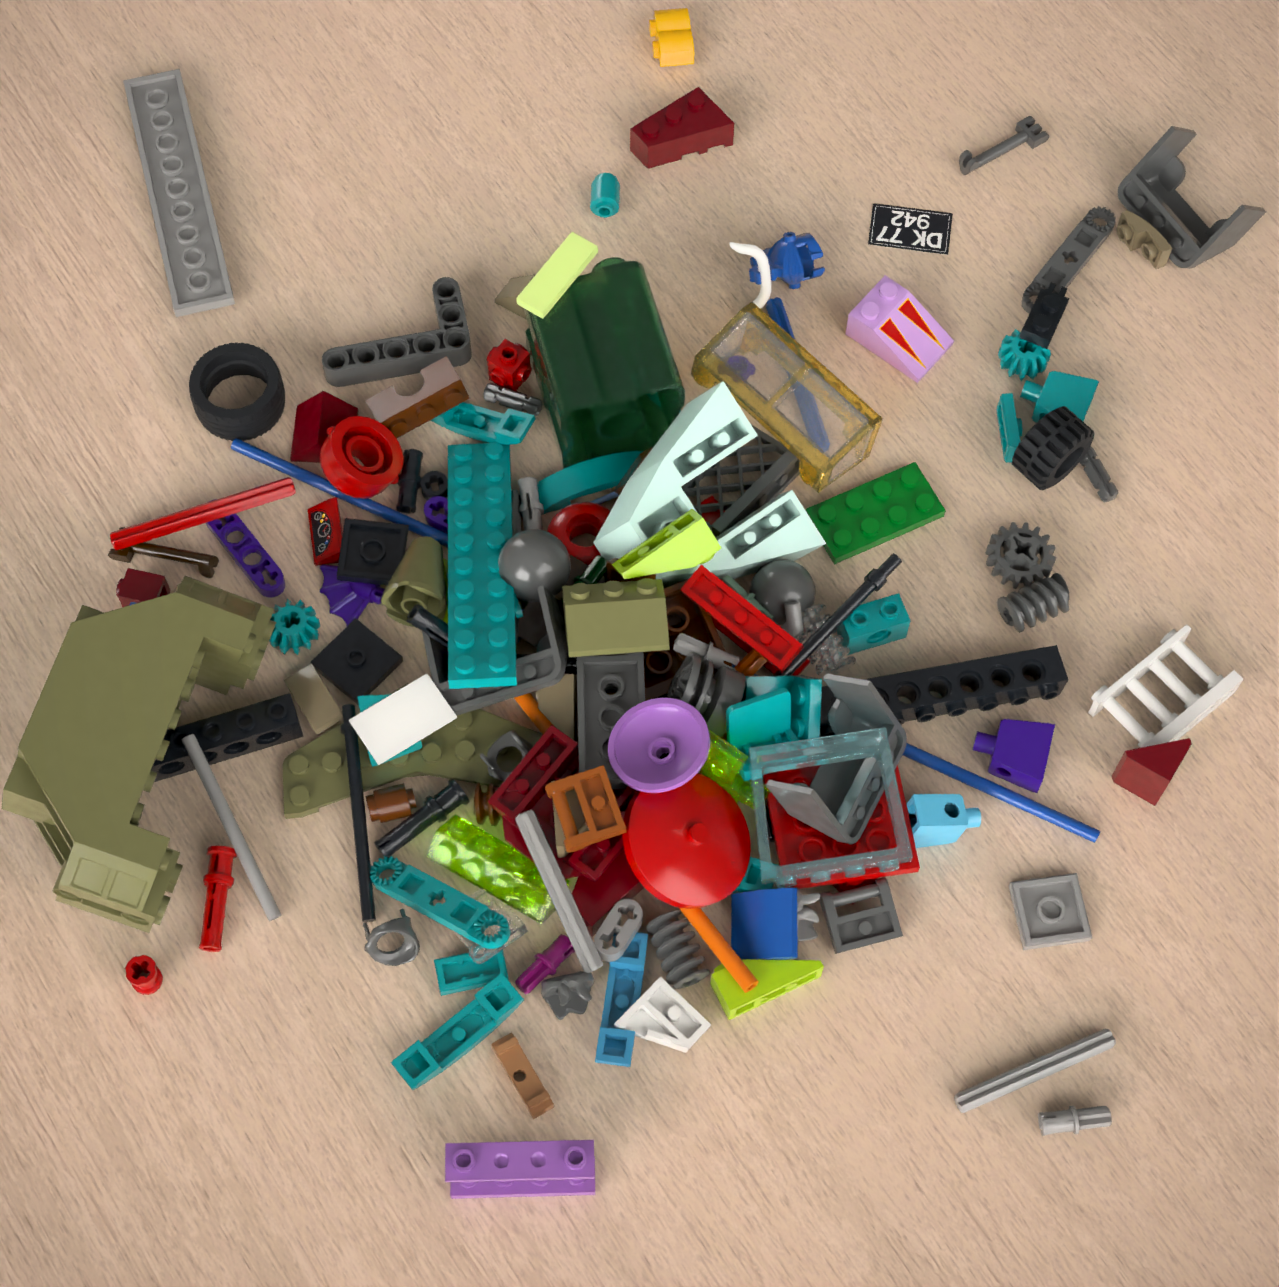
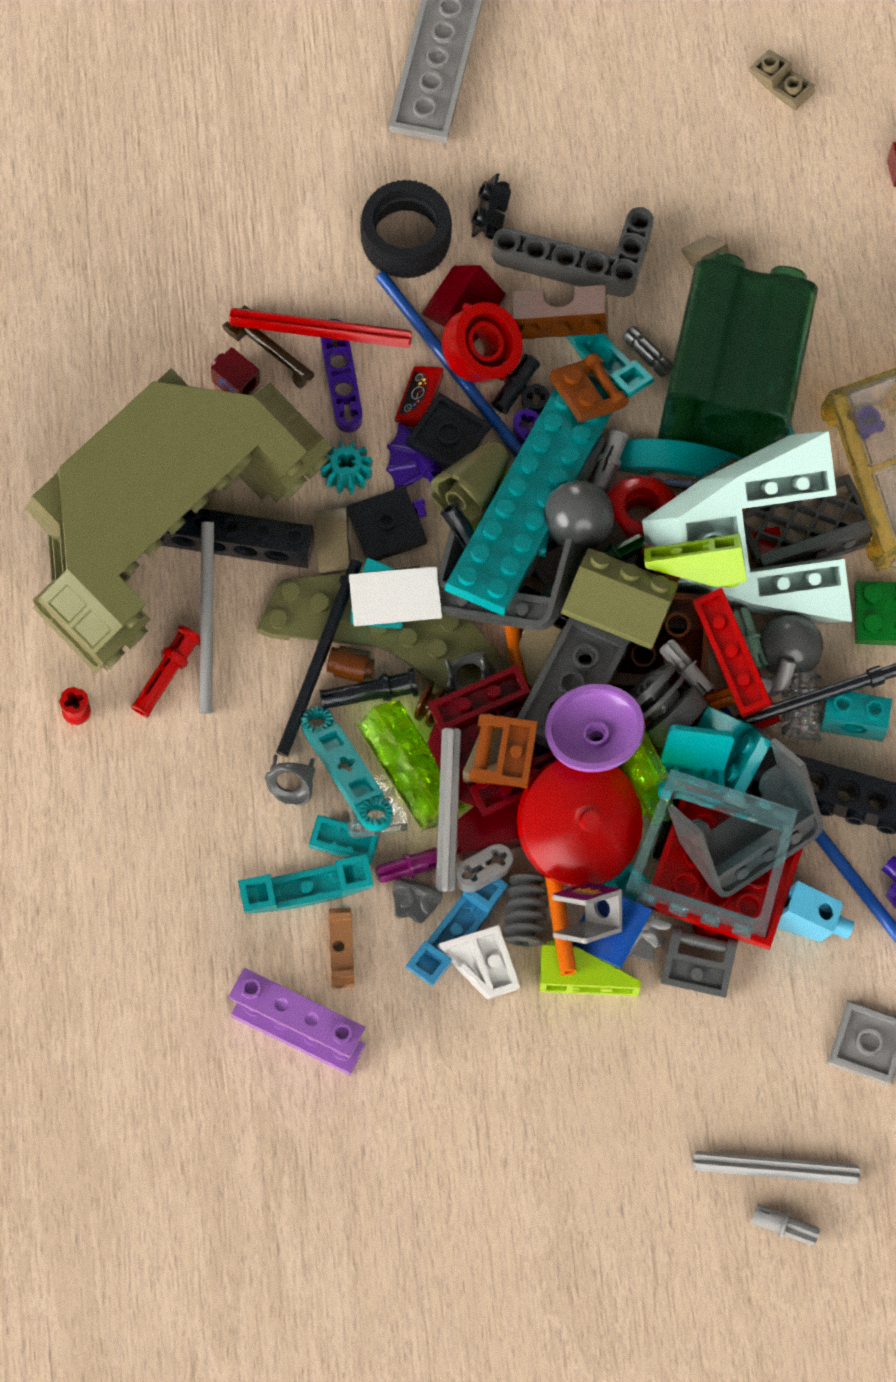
camera: 25 degrees right, 5 degrees up
(303, 329) = (493, 196): none -> black hinge
(380, 631) = (419, 507): none -> dark purple piece
(476, 460) = (580, 392): none -> dark orange plate
(499, 123) = (777, 76): none -> dark tan slope
(509, 365) = (660, 318): red brick -> none
(557, 275) = (732, 262): yellowish green tile -> none
(605, 195) = (837, 195): teal brick -> none
(752, 931) = (595, 925): none -> light grey piece

